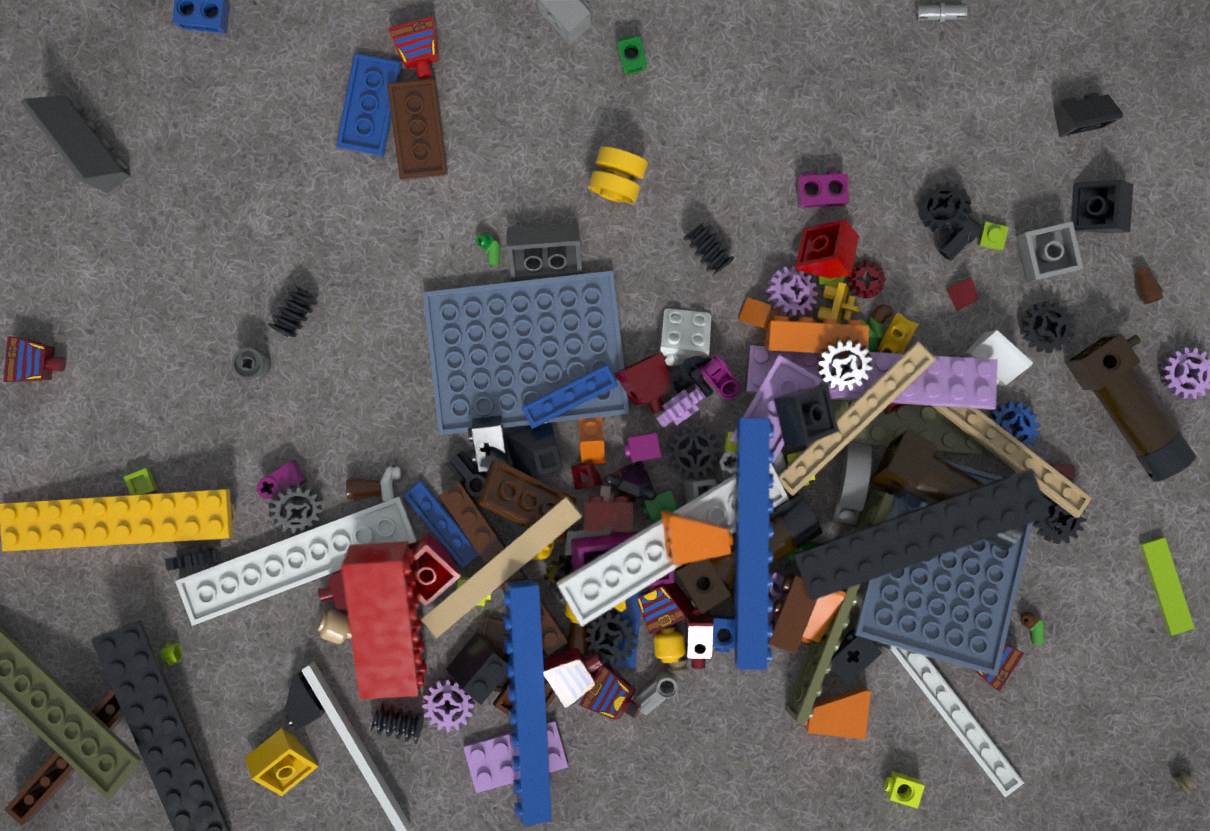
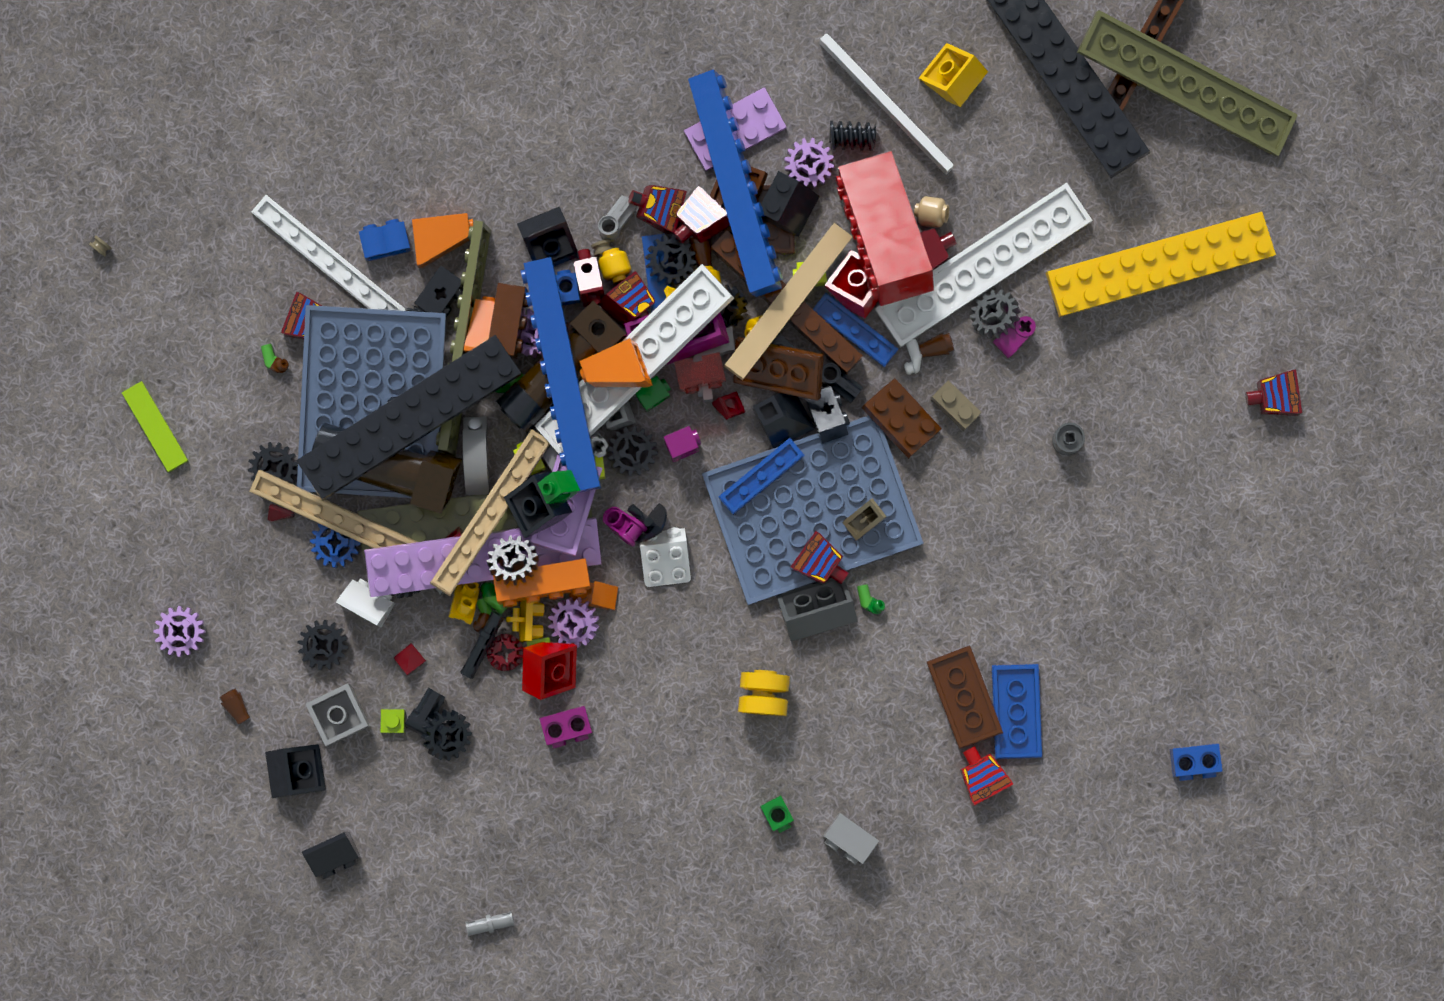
camera: 160 degrees right, 5 degrees down
(77, 141) = (1278, 609): dark grey slope -> none
(140, 482) = (1147, 304): lime plate -> none
(171, 653) = (1080, 152): lime plate -> none
(192, 559) = (1079, 244): black gear -> none
(294, 312) = (1039, 496): black piece -> none
(302, 703) = (946, 133): black slope -> none
(357, 423) = (955, 406): none -> dark tan brick
(415, 423) = (901, 418): none -> reddish brown plate
(475, 328) = (864, 519): none -> dark tan slope
(530, 296) = (819, 561): none -> torso
(591, 440) = (731, 440): orange slope -> none
(632, 482) = (684, 408): black rock -> none
(646, 381) = (692, 506): dark red torso -> none
(680, 407) = (654, 488): lavender gear -> none
(708, 248) = (661, 646): black piece -> none
(730, 689) = (548, 237): none -> black slope
(783, 426) = (558, 486): none -> green brick
(883, 296) = (482, 644): none -> black pin
(896, 722) = (384, 240): none -> blue brick
(913, 793) = (357, 173): neon yellow brick -> none
(1110, 373) = (228, 586): dark brown piece -> none

